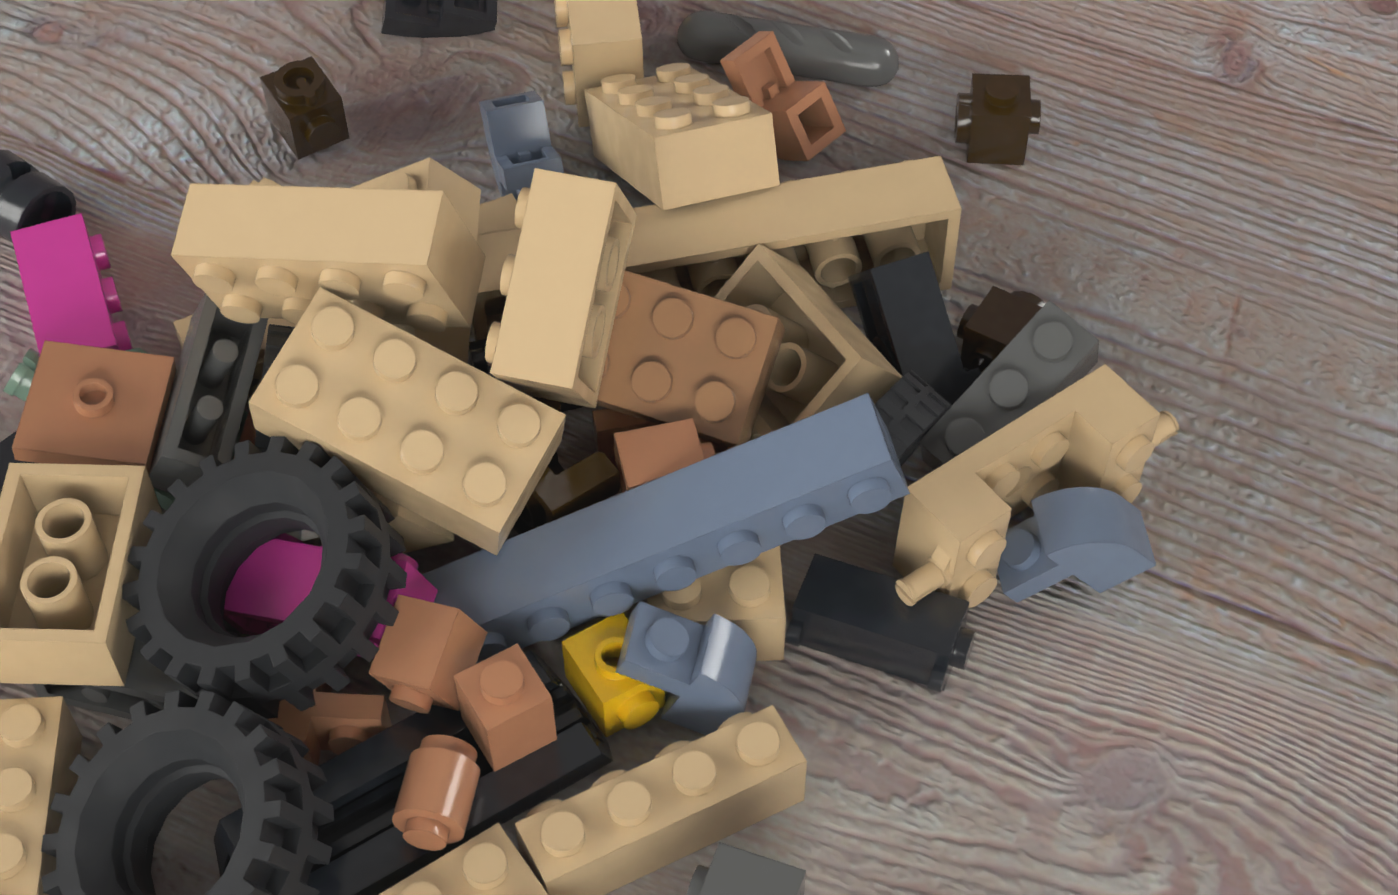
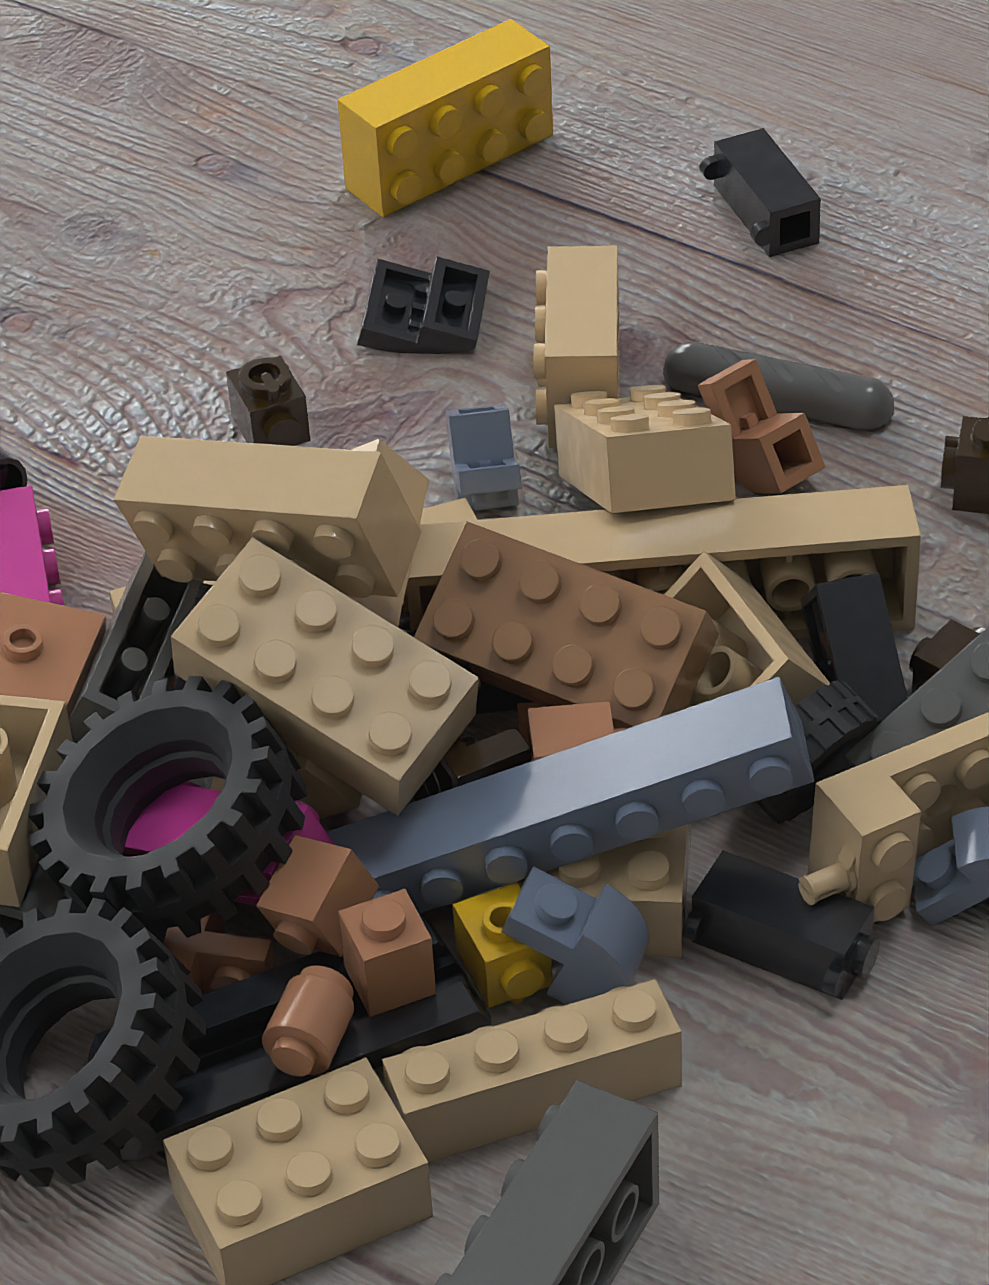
camera: 10 degrees right, 10 degrees down
(561, 287) = (490, 558): tan brick -> none

